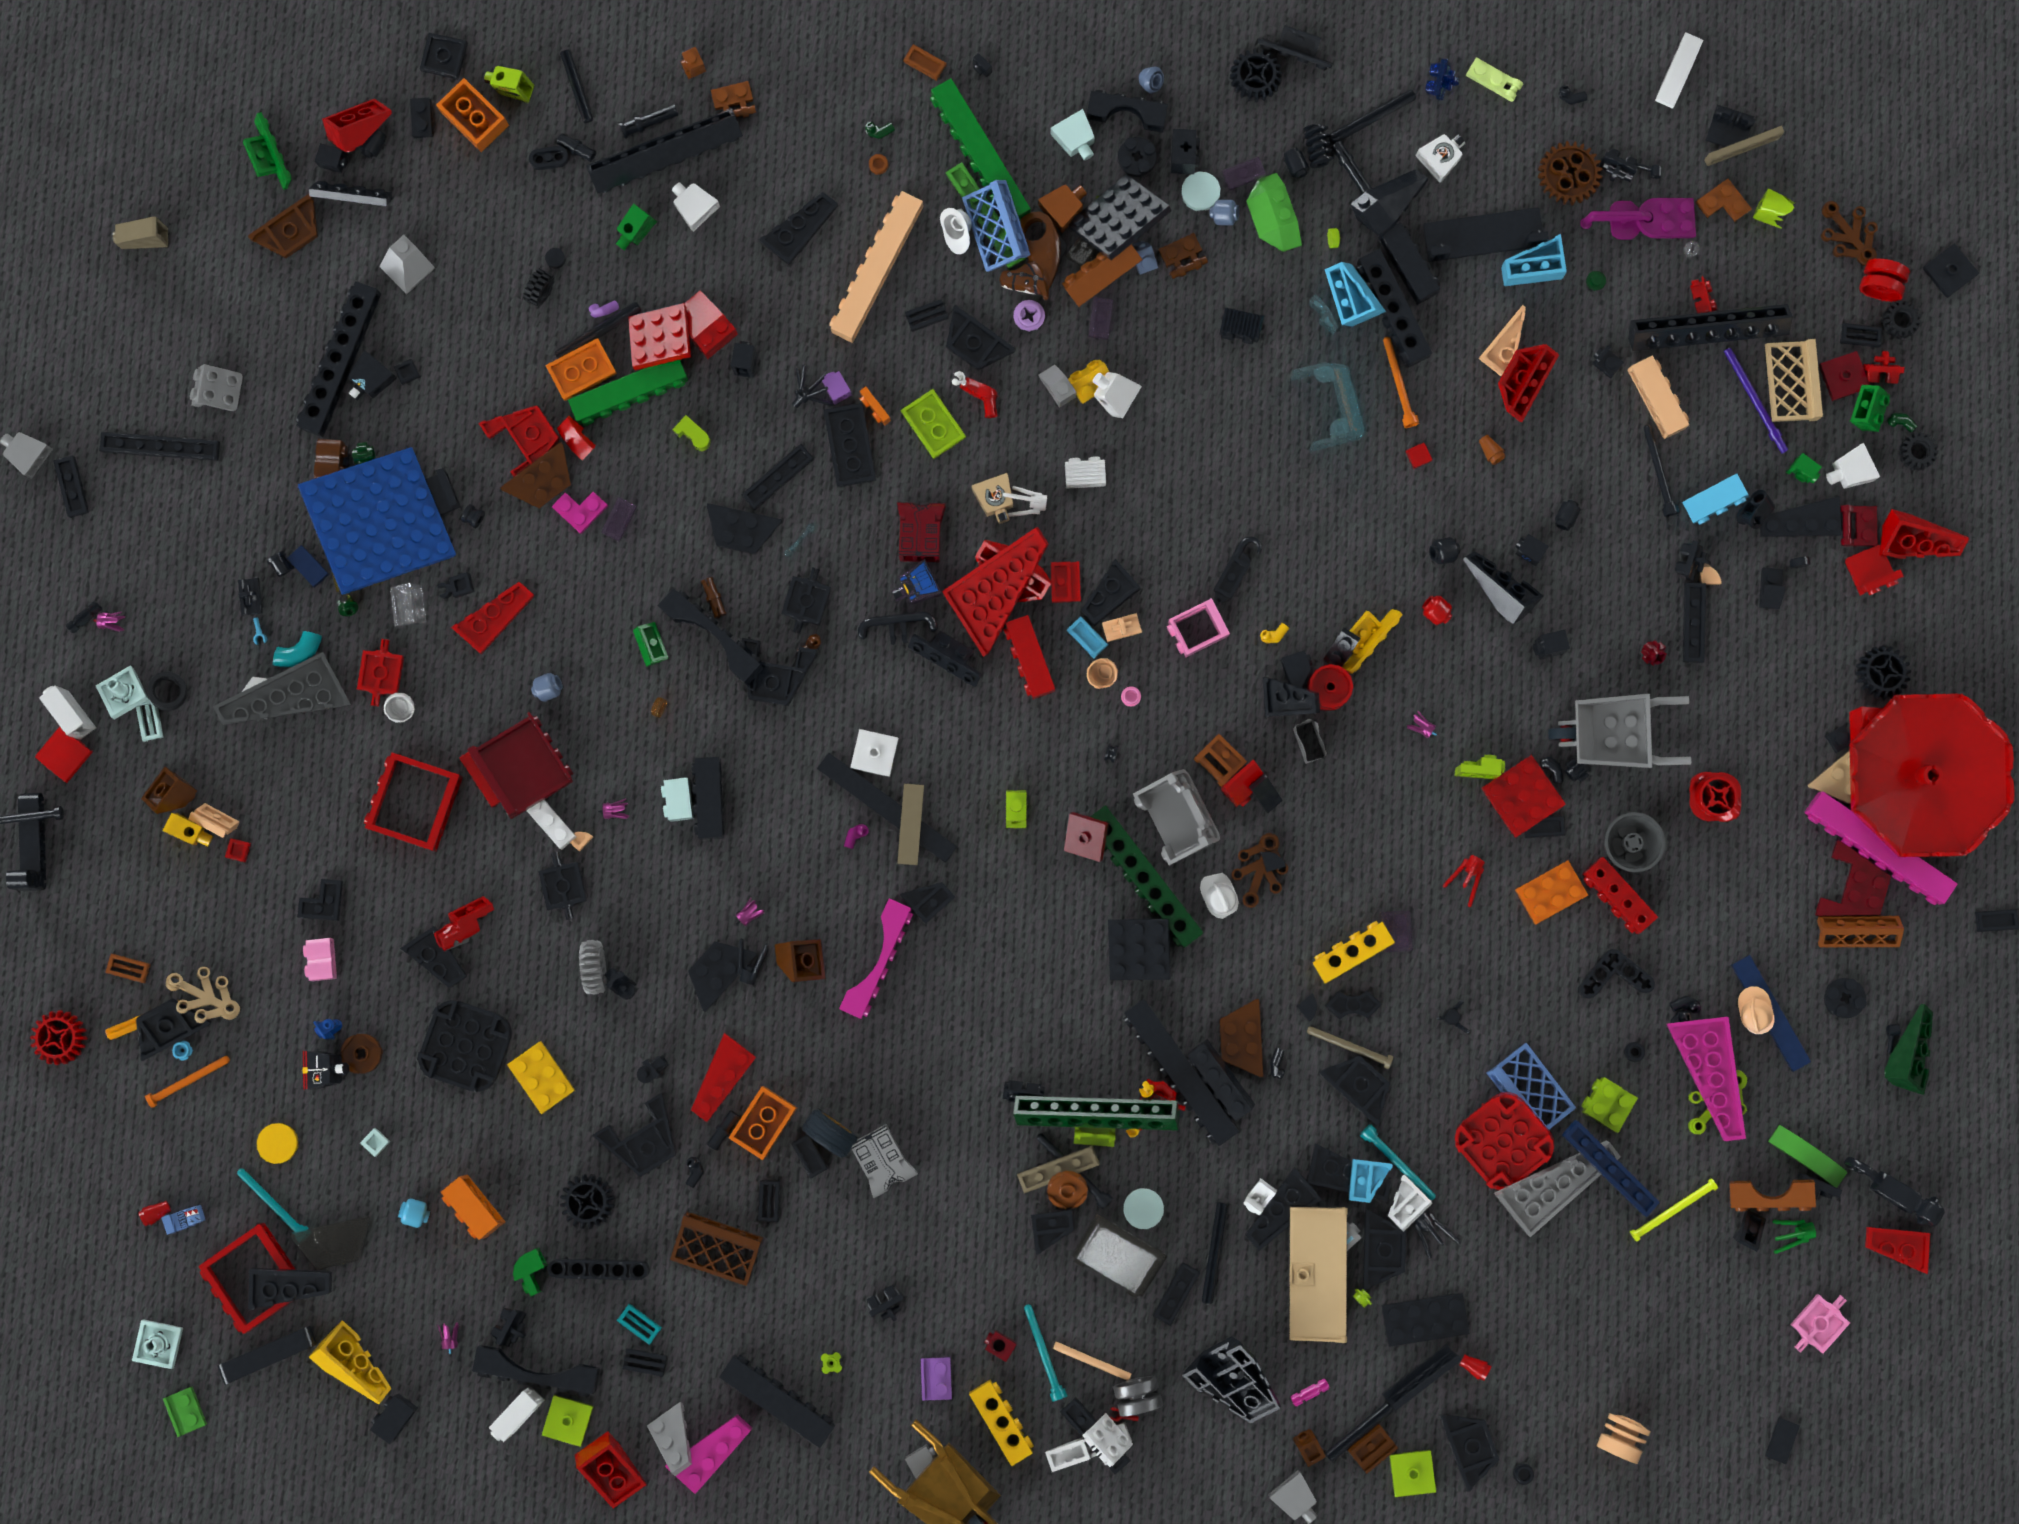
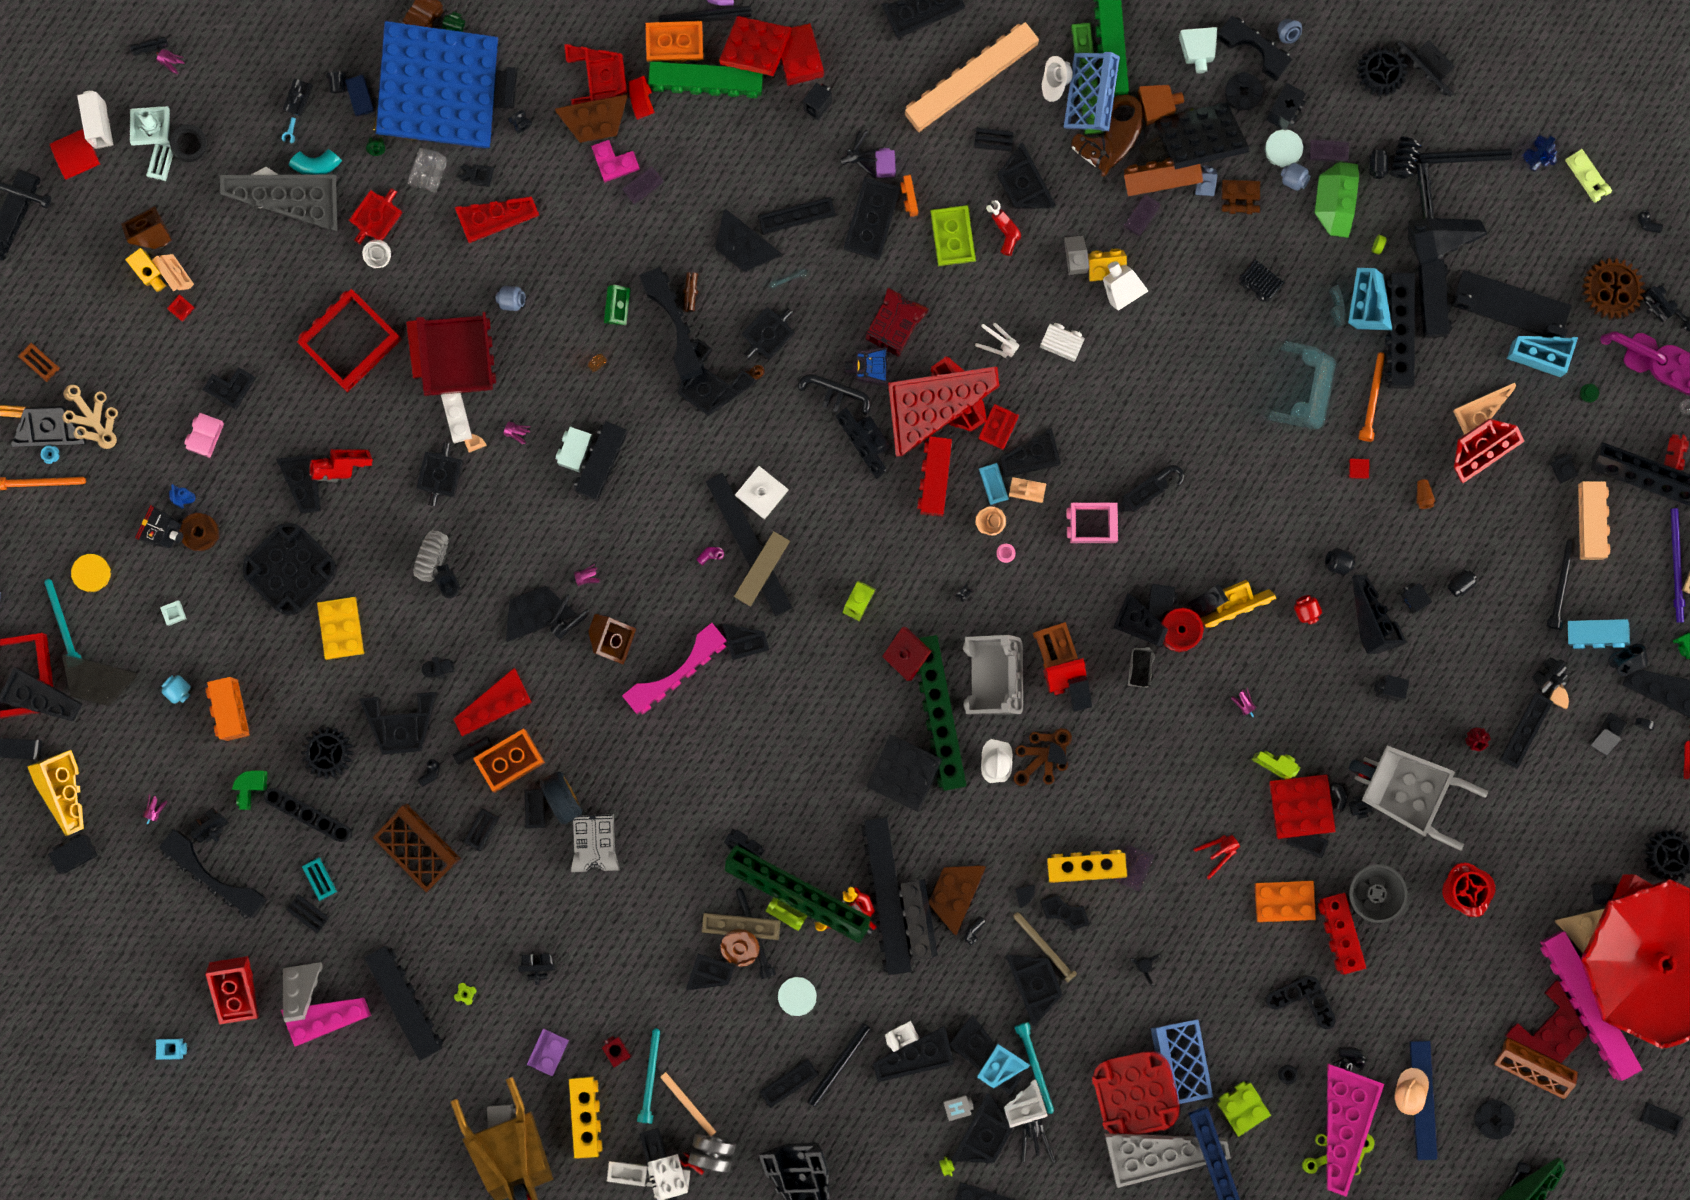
camera: 20 degrees right, 0 degrees up
(516, 1414) = (177, 902): white window -> none
(567, 1420) = (218, 930): lime plate -> none
(693, 432) = (743, 141): lime leg -> none
(991, 498) = (970, 323): tan torso -> none
(1031, 307) = (1087, 176): lavender gear -> none
(1119, 1255) = (756, 1026): clear smoke windscreen -> none
(1274, 636) = (1154, 562): yellow arm -> none
(1318, 1274) = (918, 1127): tan door -> none
(1441, 155) = (1508, 219): white torso -> none

